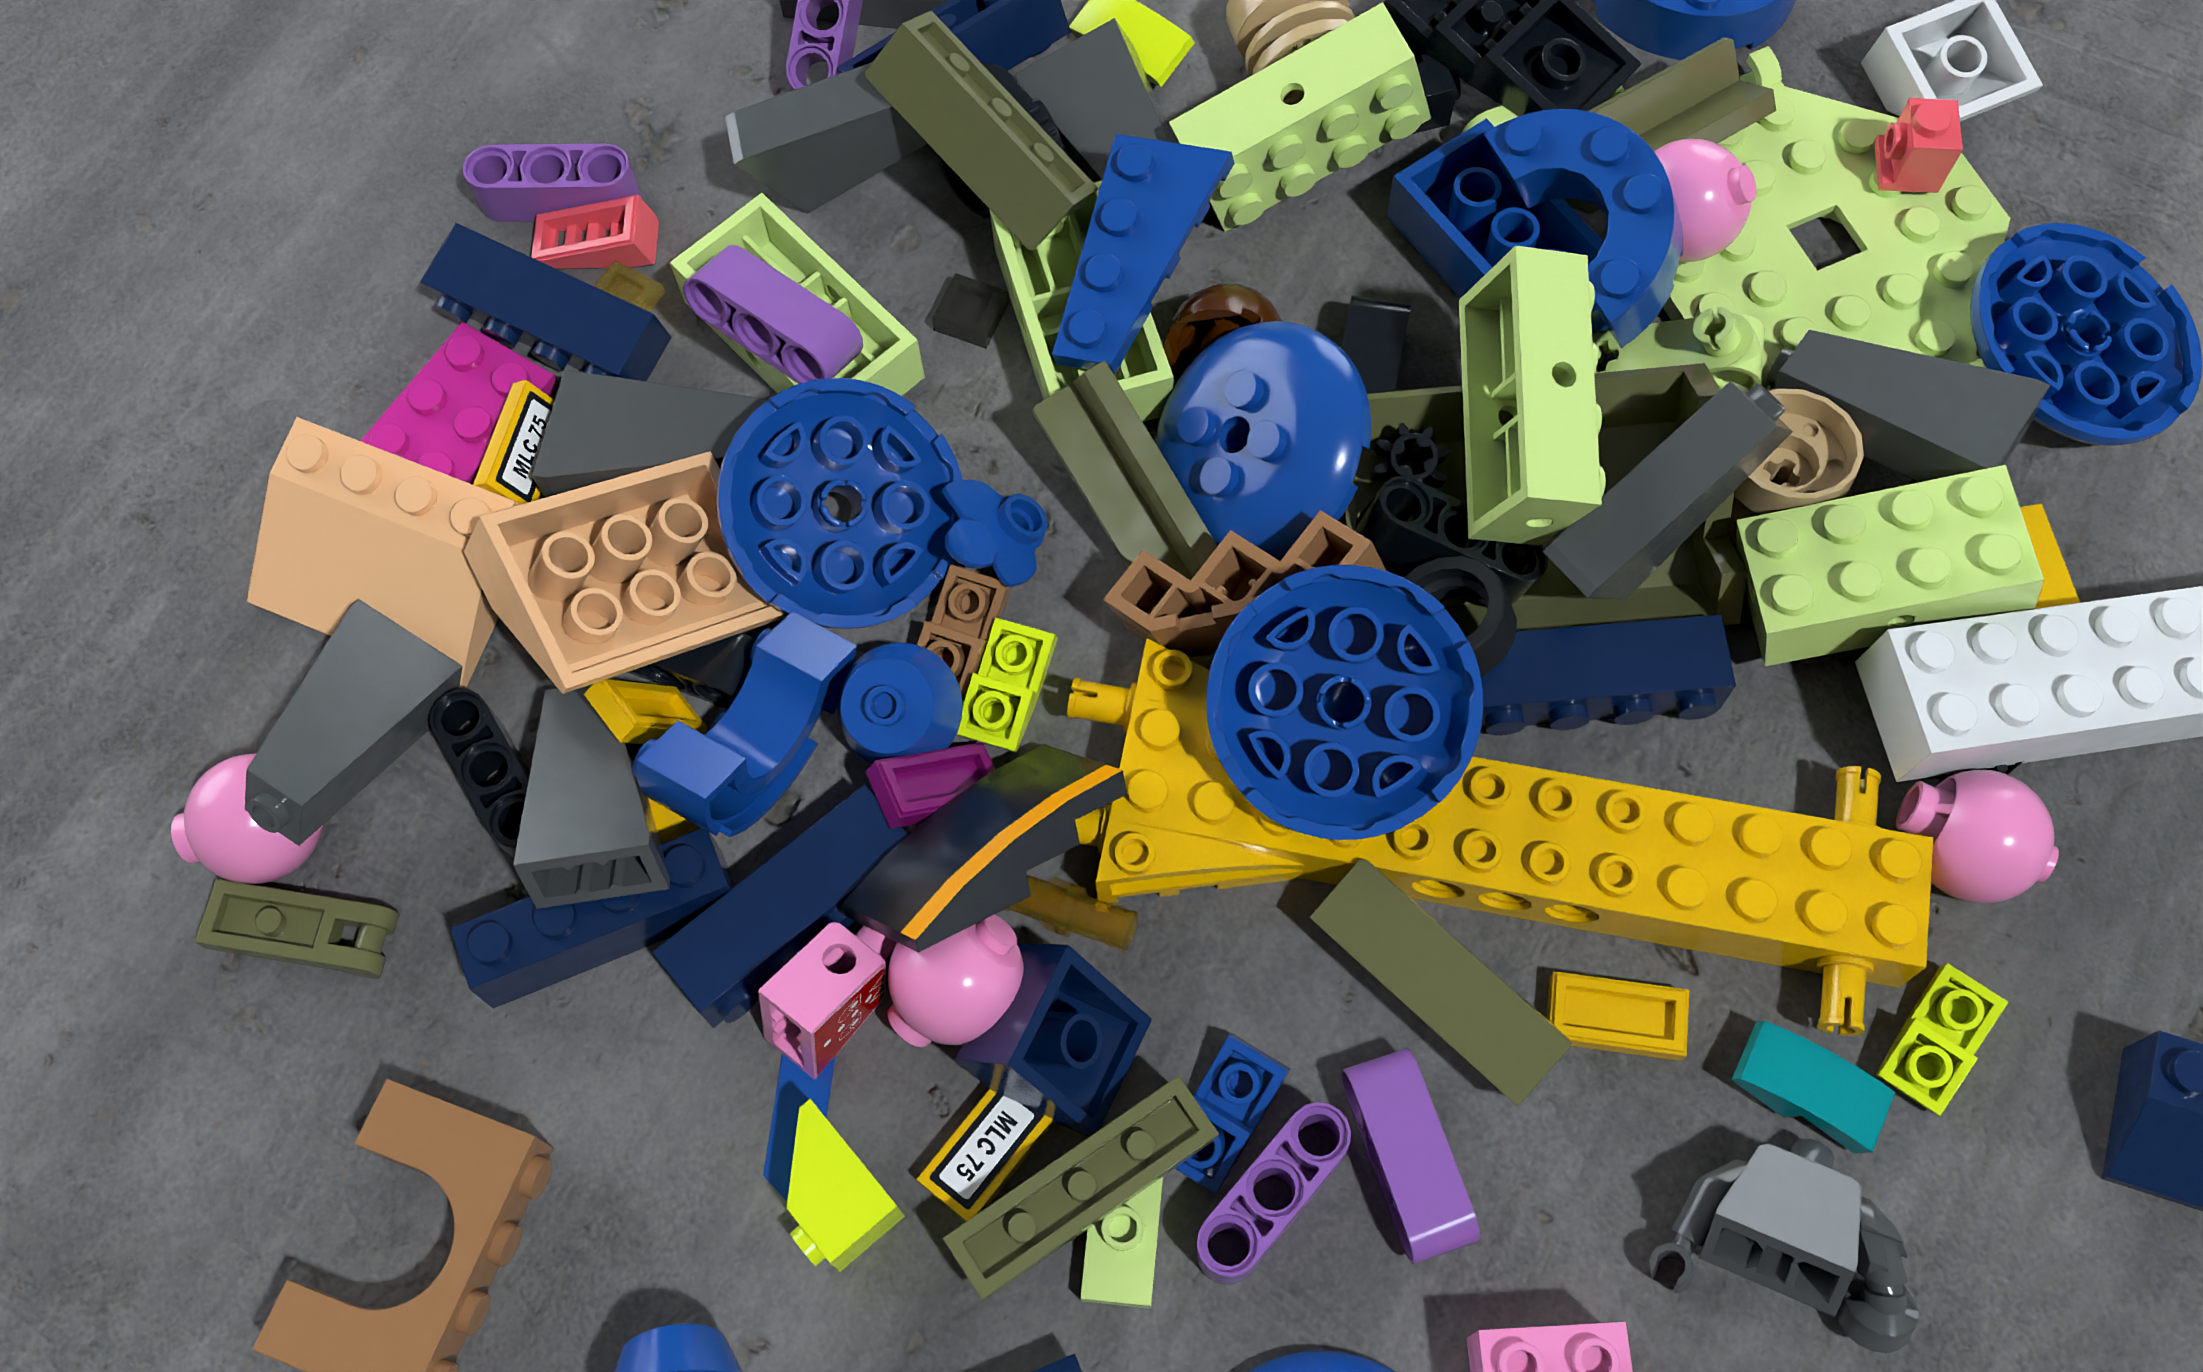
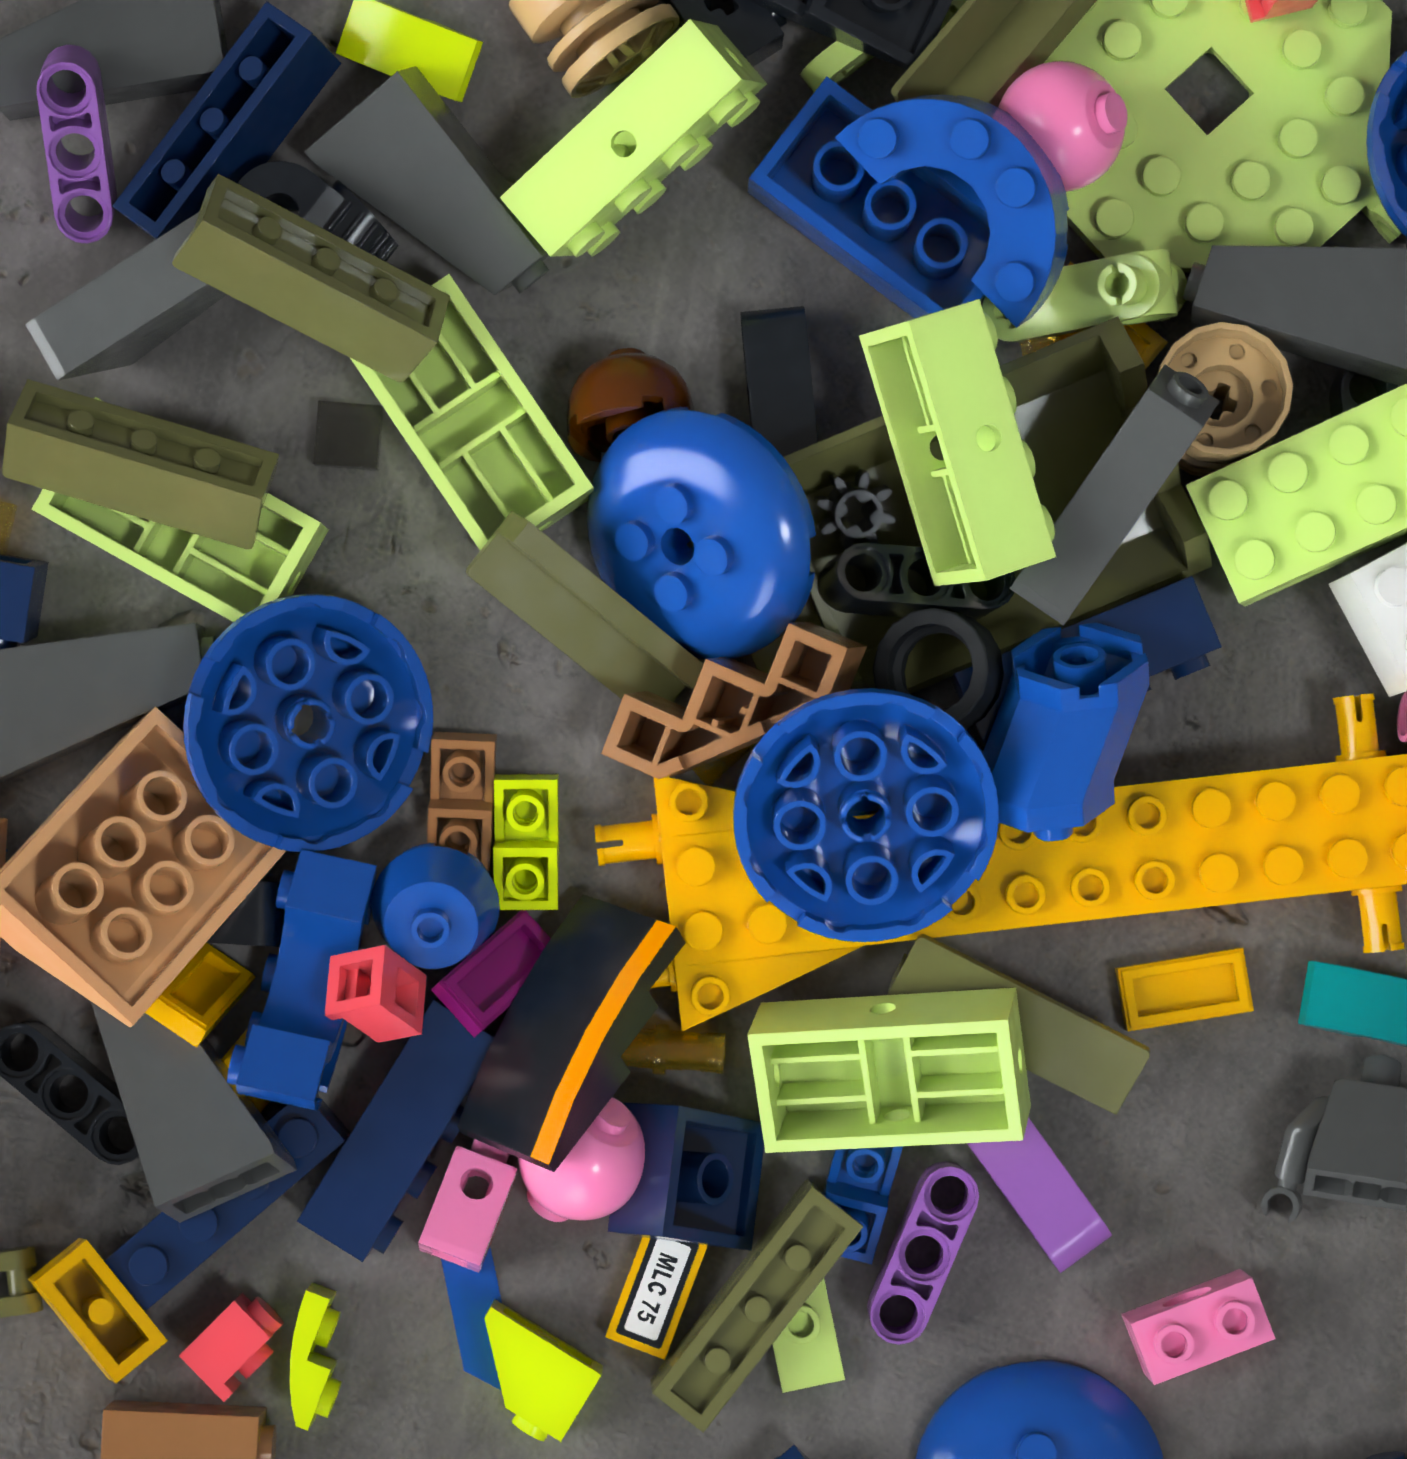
camera: 25 degrees left, 20 degrees up
(426, 980) = (97, 1310): none -> yellow brick
(542, 1063) = (233, 1343): none -> coral brick
(603, 1126) = (311, 1372): none -> neon yellow slope
(719, 206) = (137, 464): none -> olive panel
(772, 316) = (169, 552): medium lavender beam -> none
(812, 753) = (376, 993): none -> coral brick
(994, 530) = (457, 697): blue plate -> none
(1133, 242) = (509, 341): blue wing -> none
(1295, 980) = (890, 1070): none -> yellowish green brick
(1564, 697) = (1065, 727): none -> blue brick

